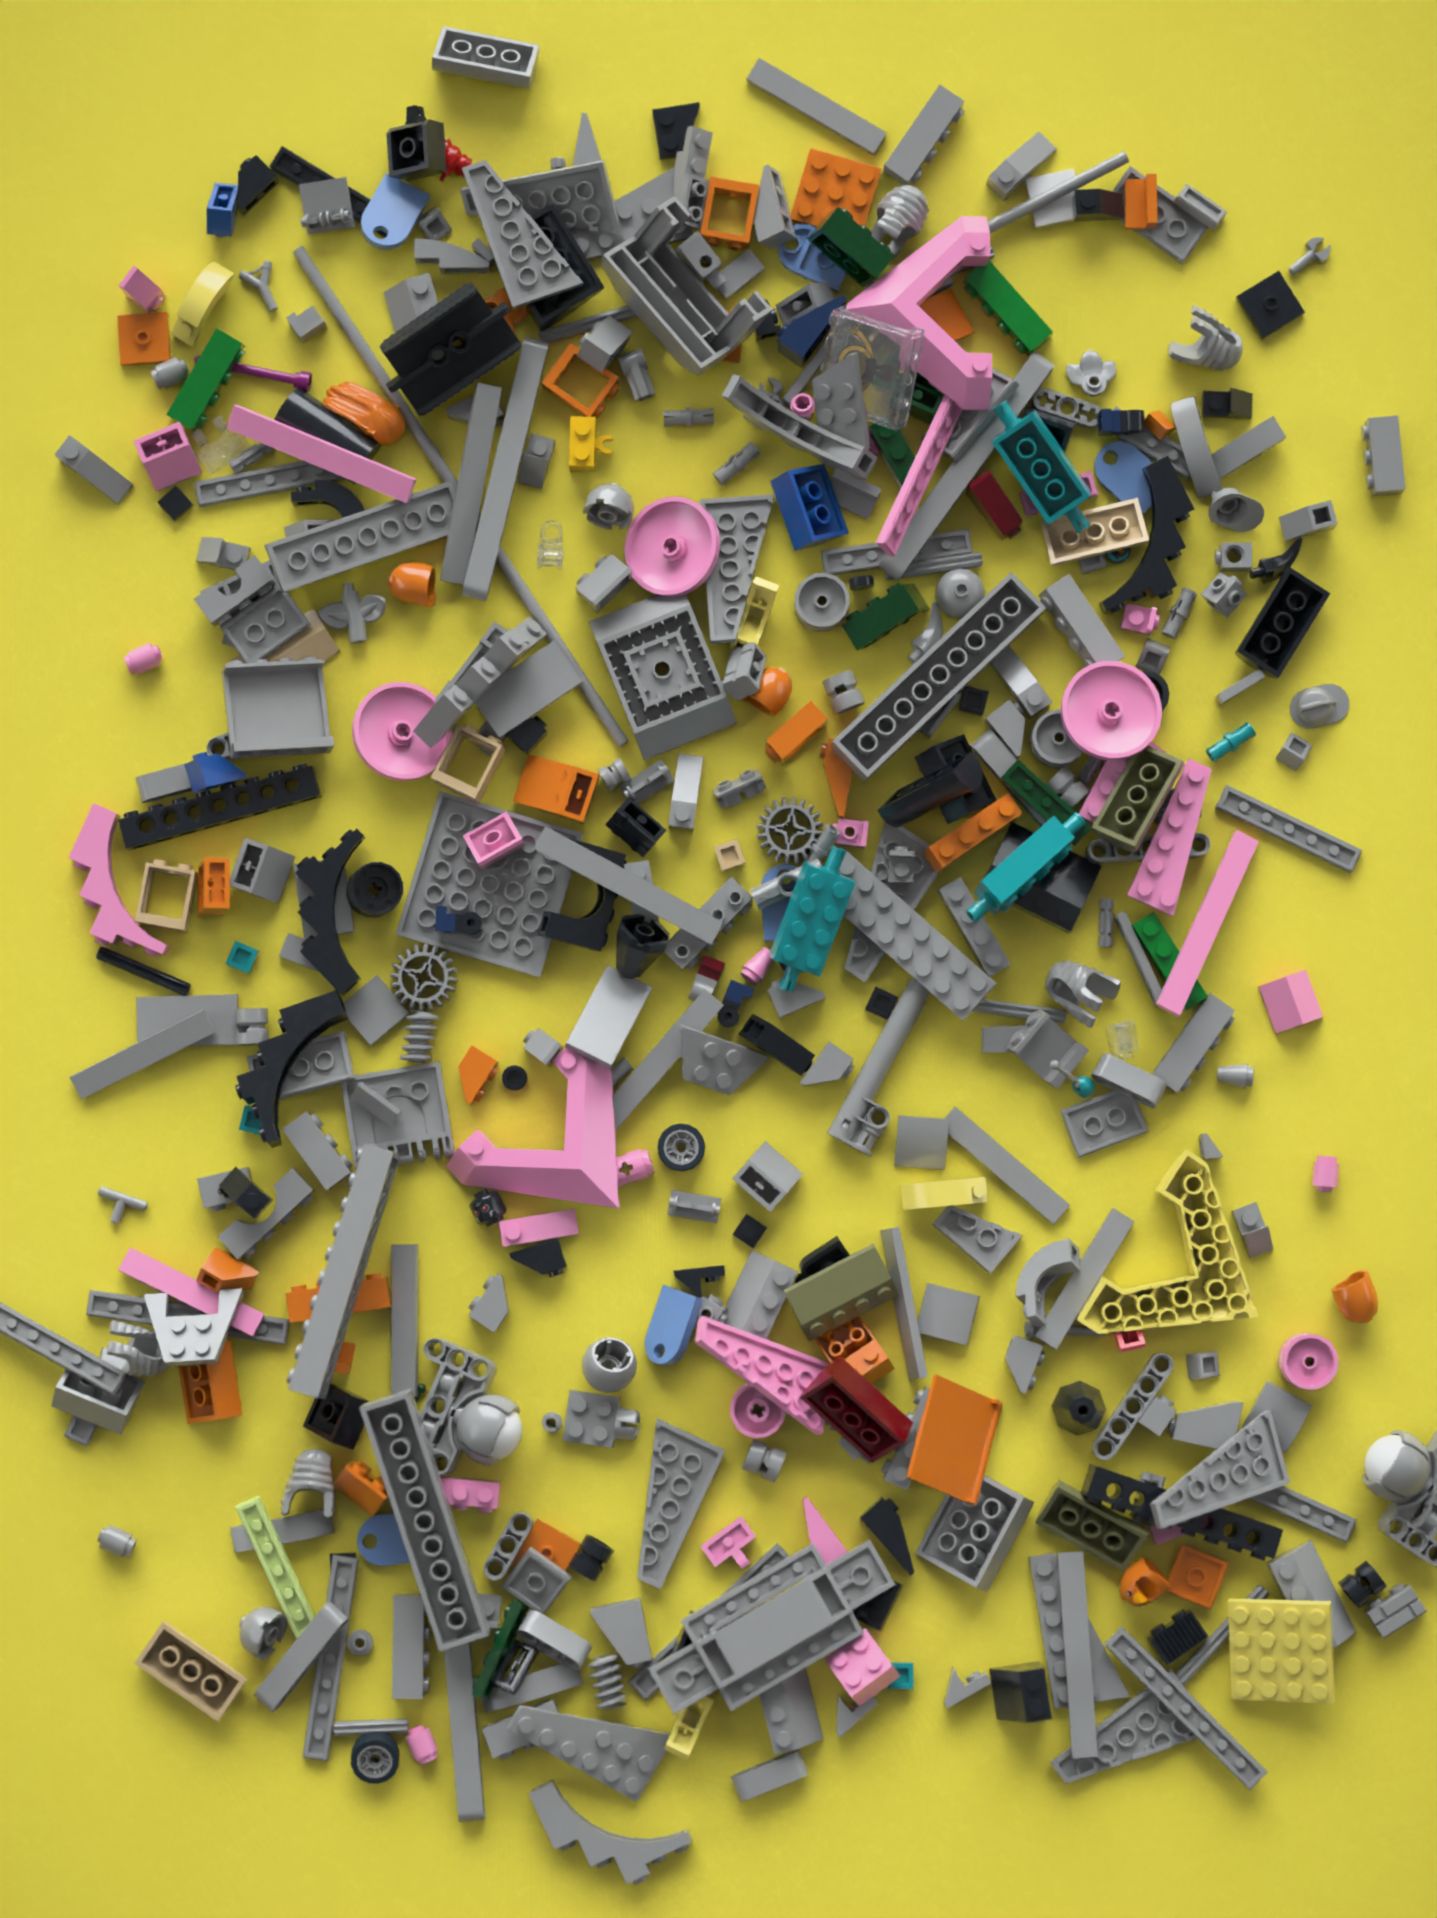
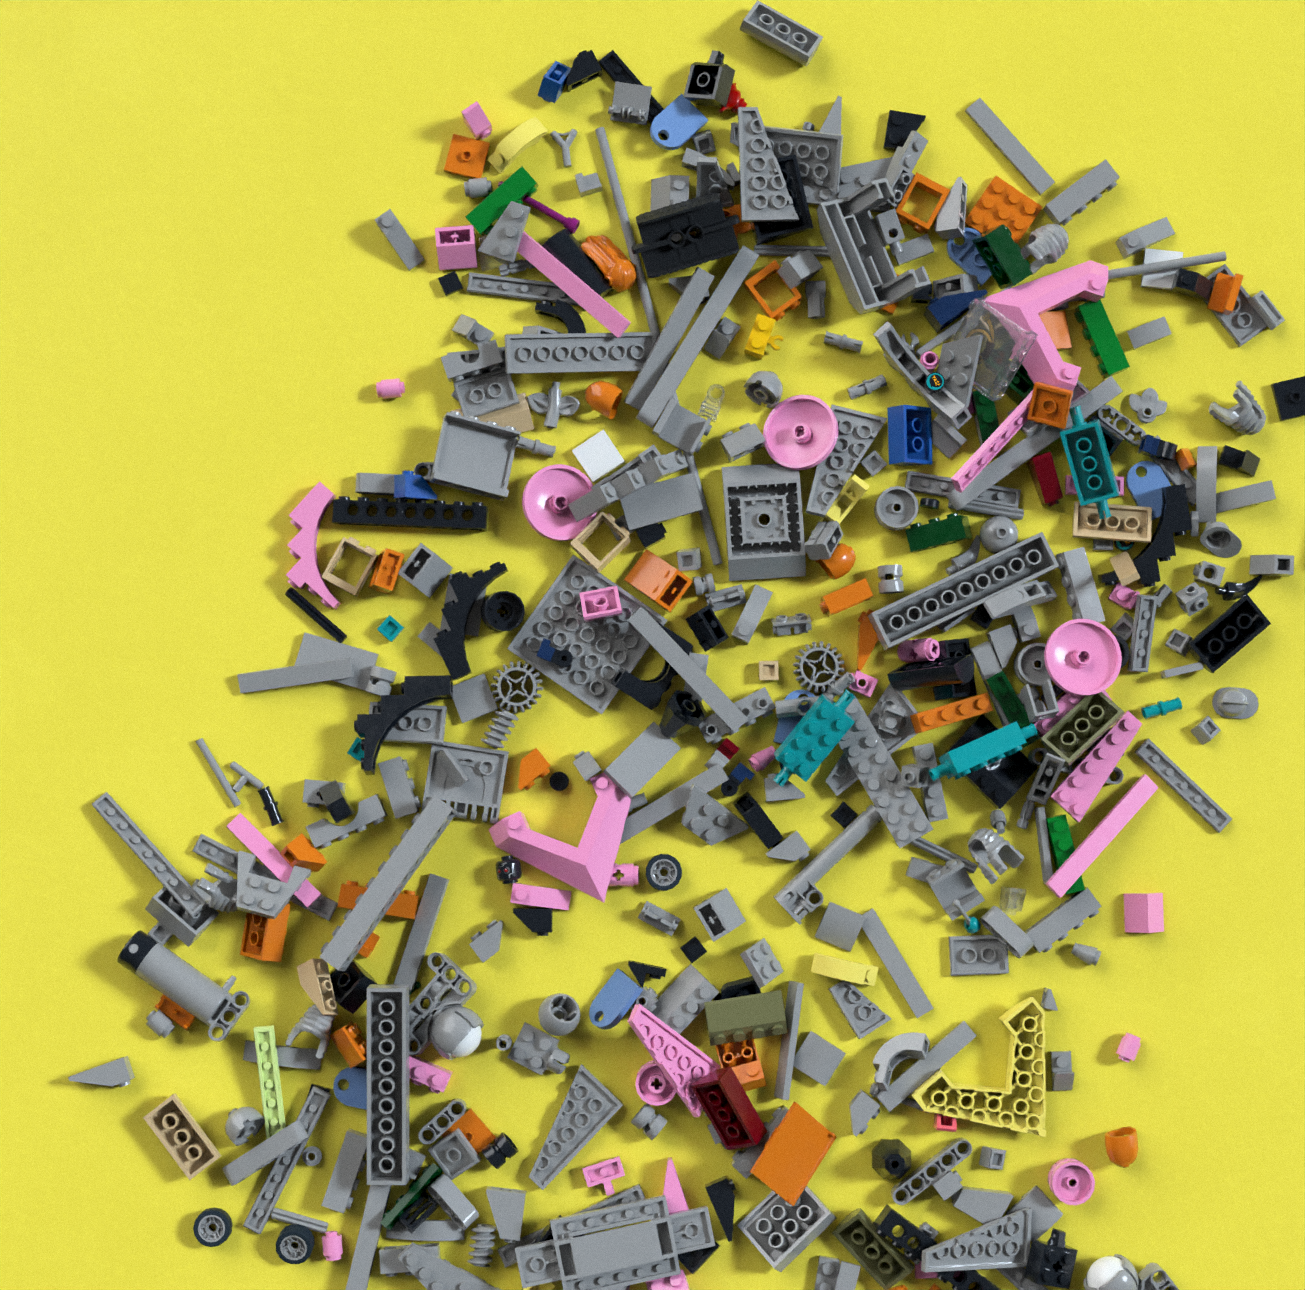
camera: 20 degrees right, 0 degrees up
(75, 1624) = (109, 1074): none -> light grey slope
(86, 1206) = (218, 772): none -> light grey bar
(129, 1481) = (182, 983): none -> light grey piece
(132, 1519) = (175, 1012): none -> orange hinge
(165, 1226) = (270, 806): none -> black pin
(225, 418) = (507, 233): none -> light grey wing
(260, 1783) = (205, 1234): none -> wheel
(296, 1426) = (316, 982): none -> tan slope
(348, 672) = (535, 446): none -> light grey pin
(430, 658) = (598, 456): none -> white tile
(459, 269) = (711, 180): none -> light grey wing
(523, 589) = (681, 428): none -> light grey panel
(585, 749) = (689, 559): none -> light grey panel
(775, 556) = (873, 463): none -> light grey plate
(818, 430) = (935, 382): none -> black tile
(839, 1218) = (761, 962): none -> light grey plate
(906, 768) = (918, 650): none -> bright pink piece
(951, 924) = (914, 775): none -> light grey brick
(969, 412) = (1050, 405): none -> orange plate
(1009, 662) = (1018, 598): none -> light grey slope
(1064, 282) = (1149, 332): none -> light grey slope
(1073, 802) = (1030, 707): none -> light grey piece
(1074, 947) = (998, 820): none -> light grey cylinder
(1114, 875) = (1045, 778): none -> light grey slope
(1126, 584) = (1124, 568): none -> tan tile
(1176, 657) = (1142, 633): none -> light grey tile
(1196, 500) = (1194, 519): none -> light grey tile
(1224, 654) = (1178, 641): none -> light grey slope
(1315, 1466) = (1051, 1261): none -> black hinge

